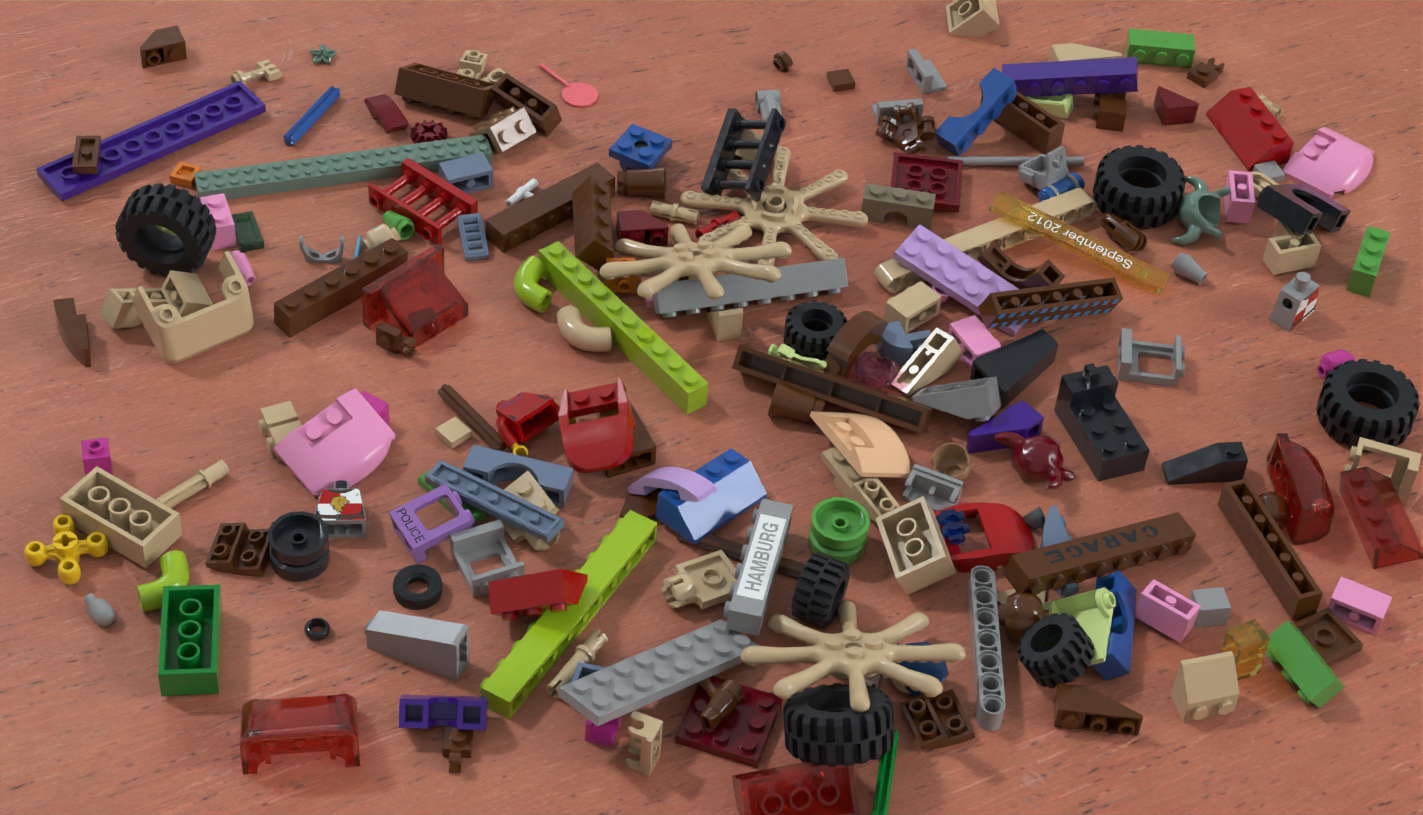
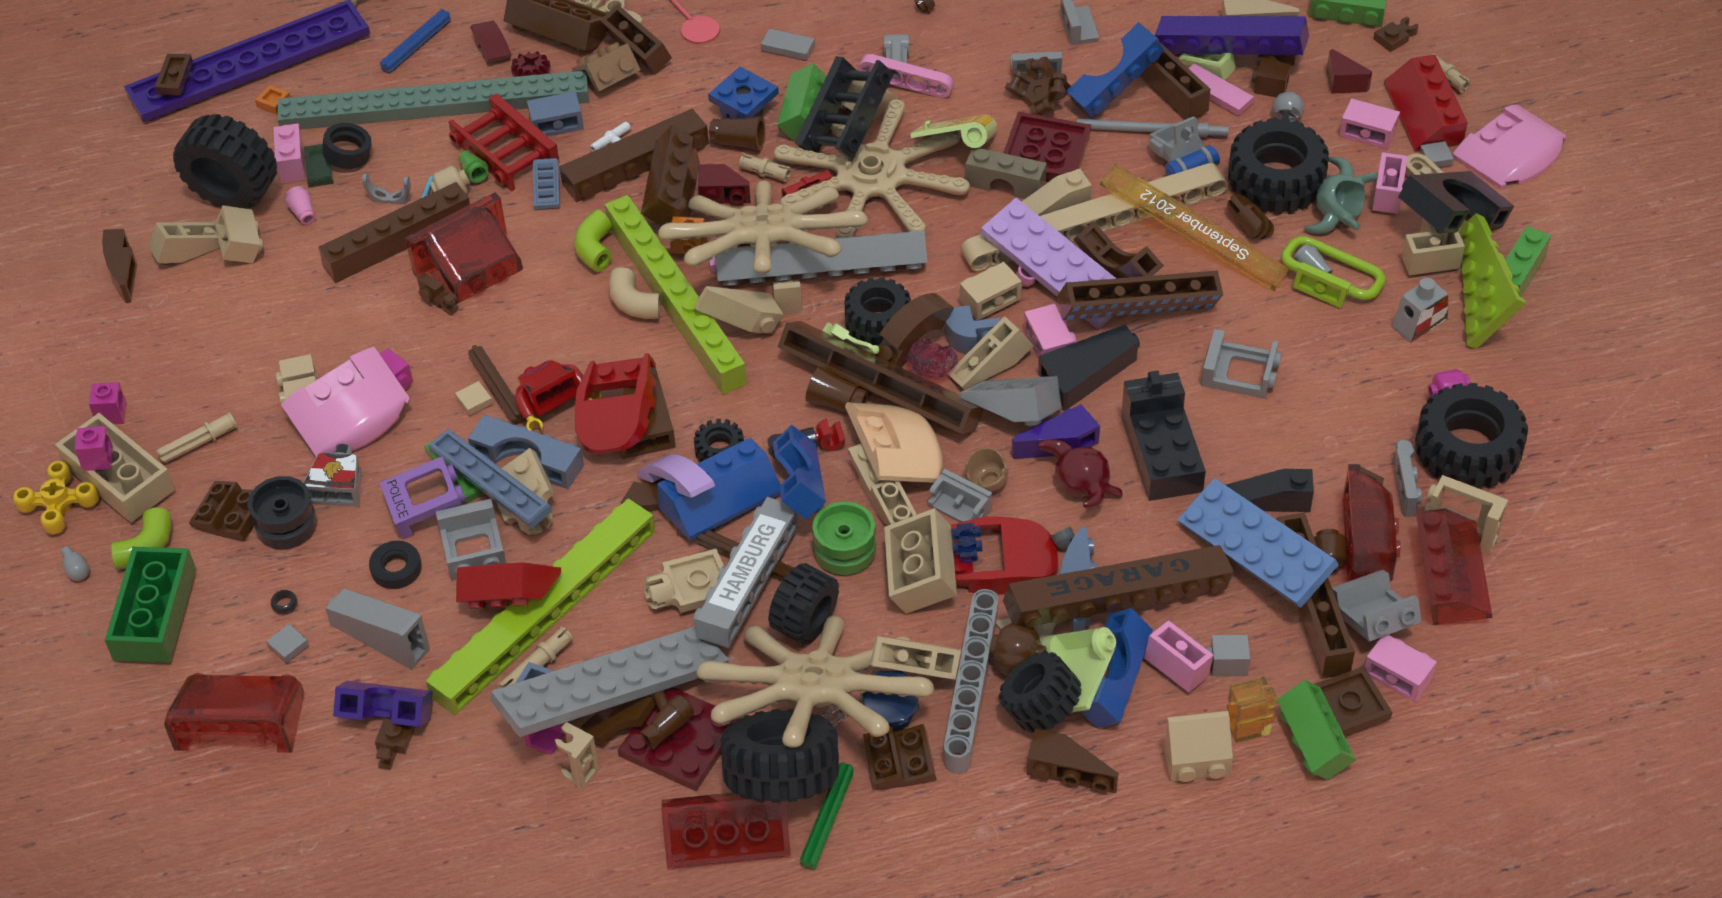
camera: 15 degrees right, 5 degrees up
(105, 497) = (94, 448): none -> dark pink brick
(205, 329) = (246, 269): tan windscreen -> none
(275, 201) = (346, 158): none -> black tyre
(330, 666) = (287, 643): none -> light grey tile
(666, 104) = (787, 44): none -> light grey tile
(675, 704) = (617, 718): none -> reddish brown tile
(692, 335) = (741, 308): none -> tan slope
(695, 150) = (799, 99): none -> bright green brick
(695, 447) = (713, 433): none -> black tyre
(791, 479) = (804, 487): none -> blue arch
(797, 443) = (830, 438): none -> red piece
(810, 137) = (907, 71): none -> bright pink beam
(840, 80) = (983, 25): reddish brown tile -> none
(866, 169) = (974, 129): none -> yellowish green door
(938, 628) = (915, 657): none -> tan slope
(955, 219) = (1060, 193): none -> tan slope
(1074, 130) = (1223, 92): none -> bright pink tile
(1131, 135) = (1288, 106): none -> light grey piece
(1203, 285) = (1327, 286): none -> lime bar
(1206, 148) = (1369, 123): none -> bright pink brick
(1212, 507) = (1258, 542): none -> medium blue plate
(1319, 444) = (1406, 478): none -> light grey hinge
(1327, 558) = (1374, 608): none -> light grey panel
(1347, 277) = (1487, 283): none -> lime wing

